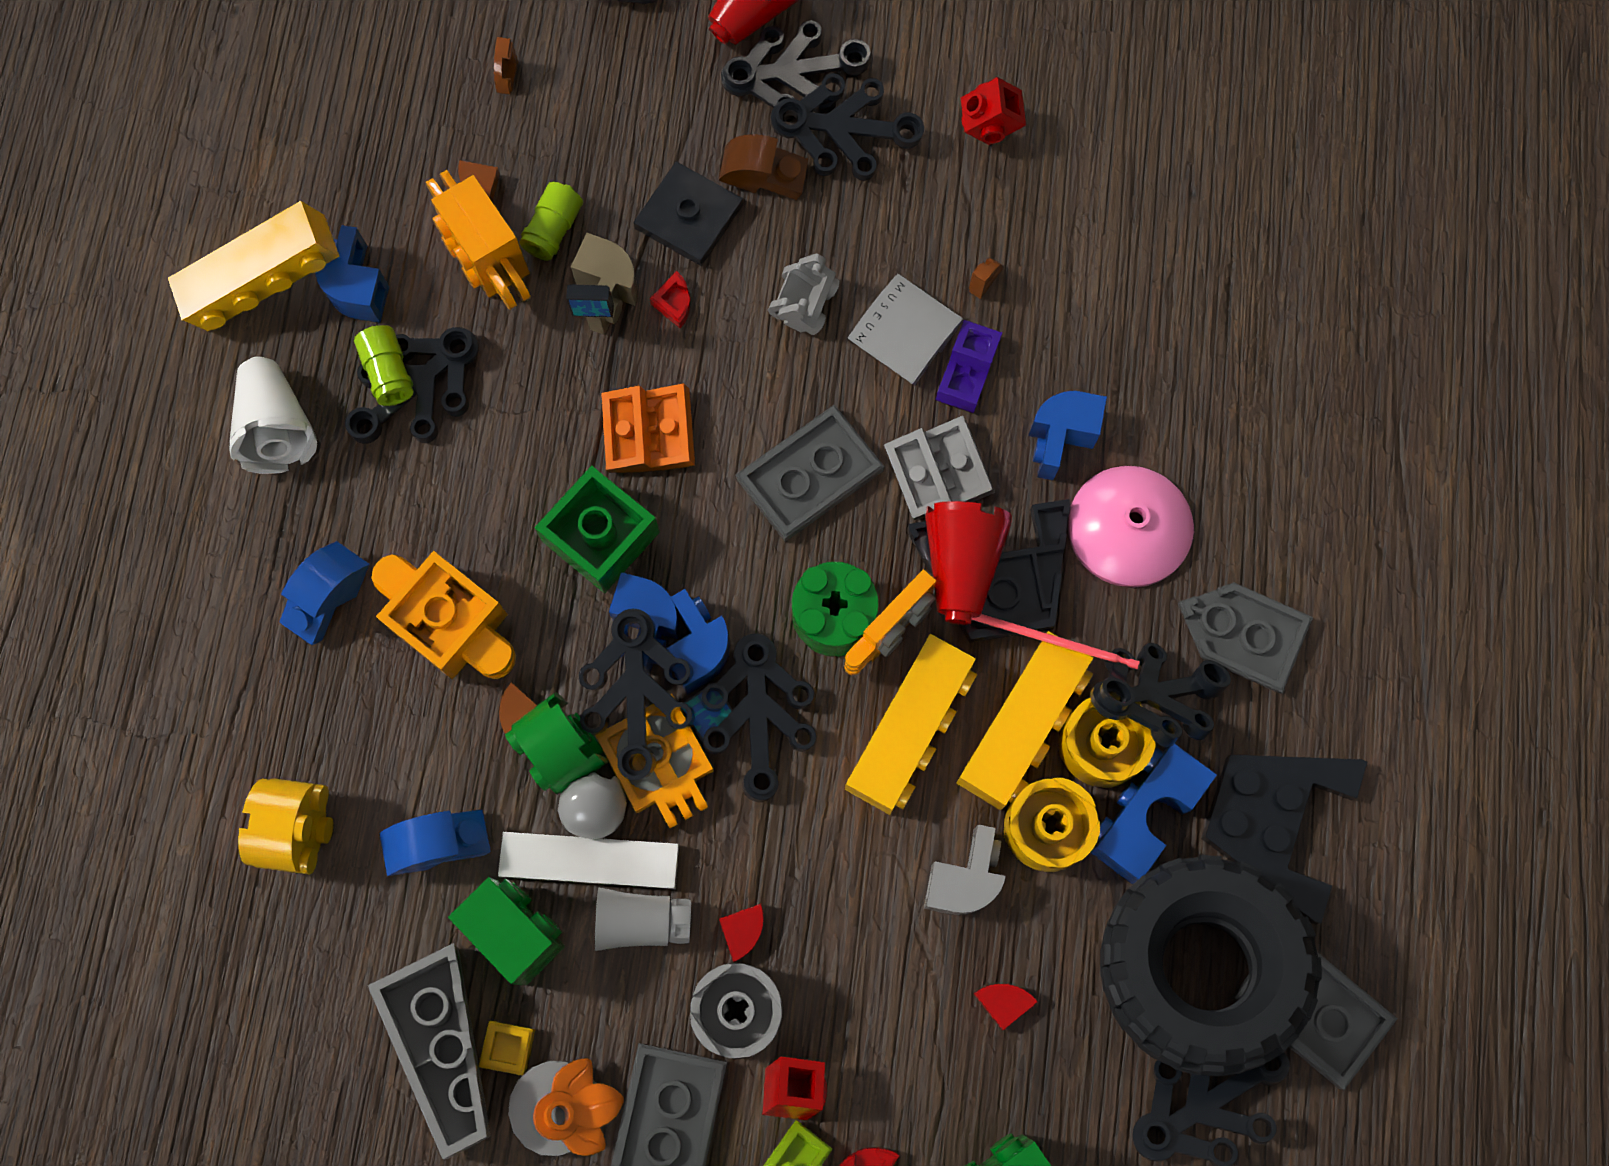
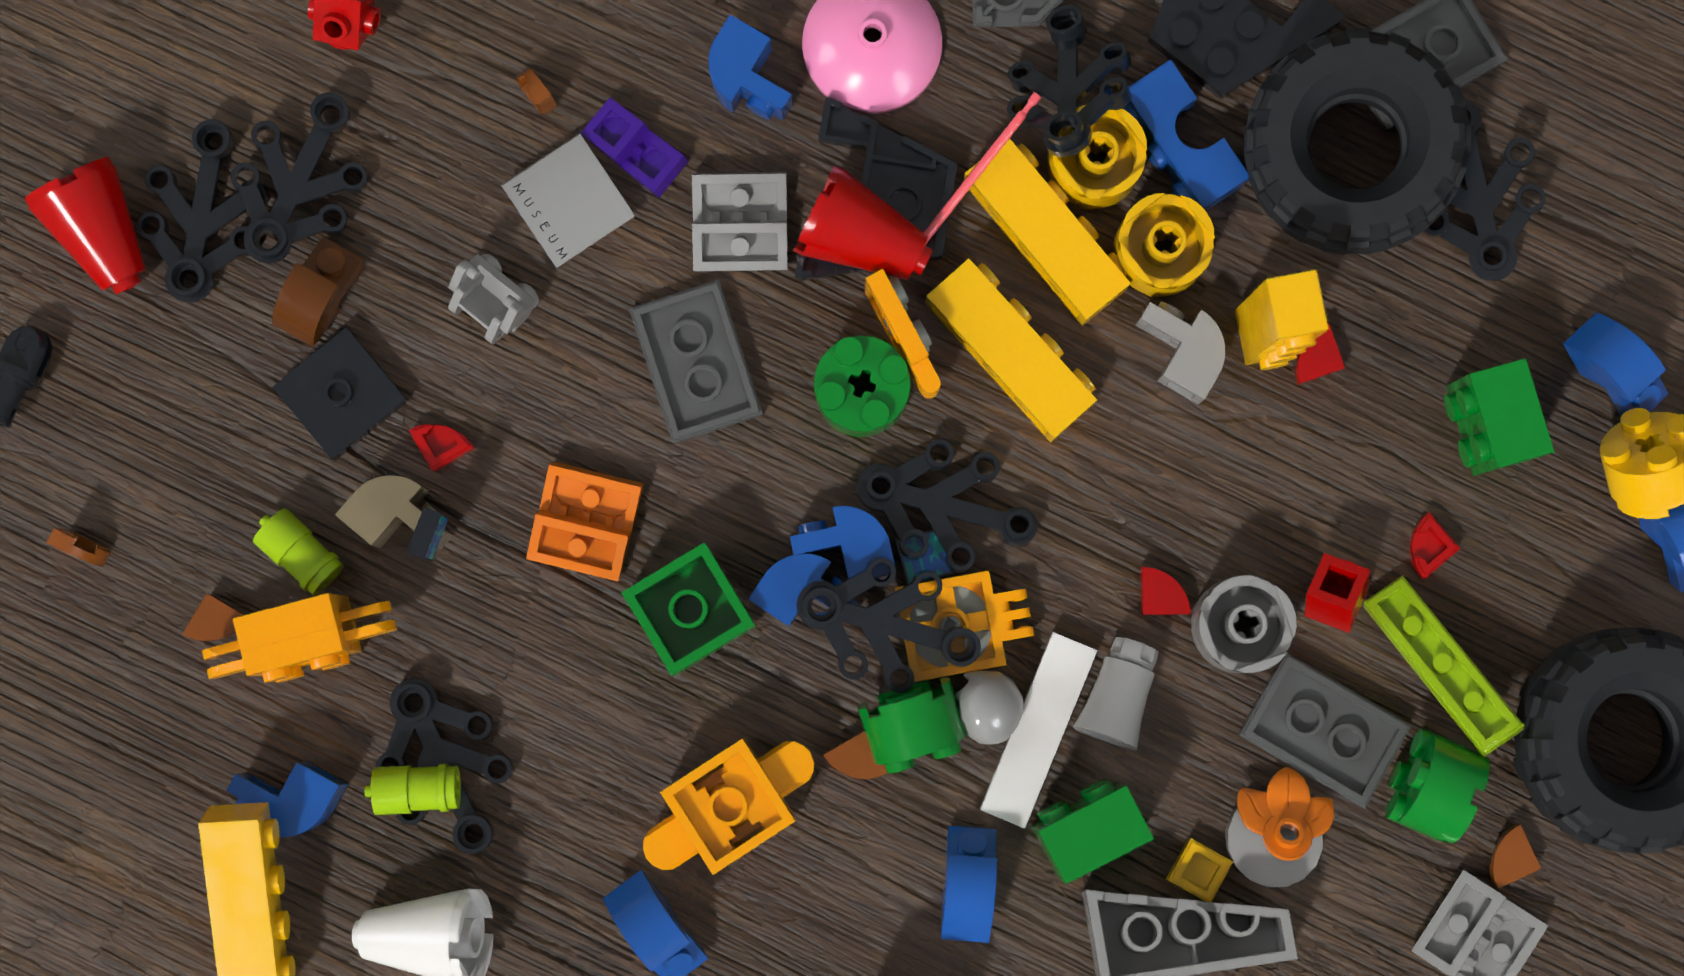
camera: 70 degrees left, 10 degrees up
(1020, 943) = (1281, 319): none -> yellow brick

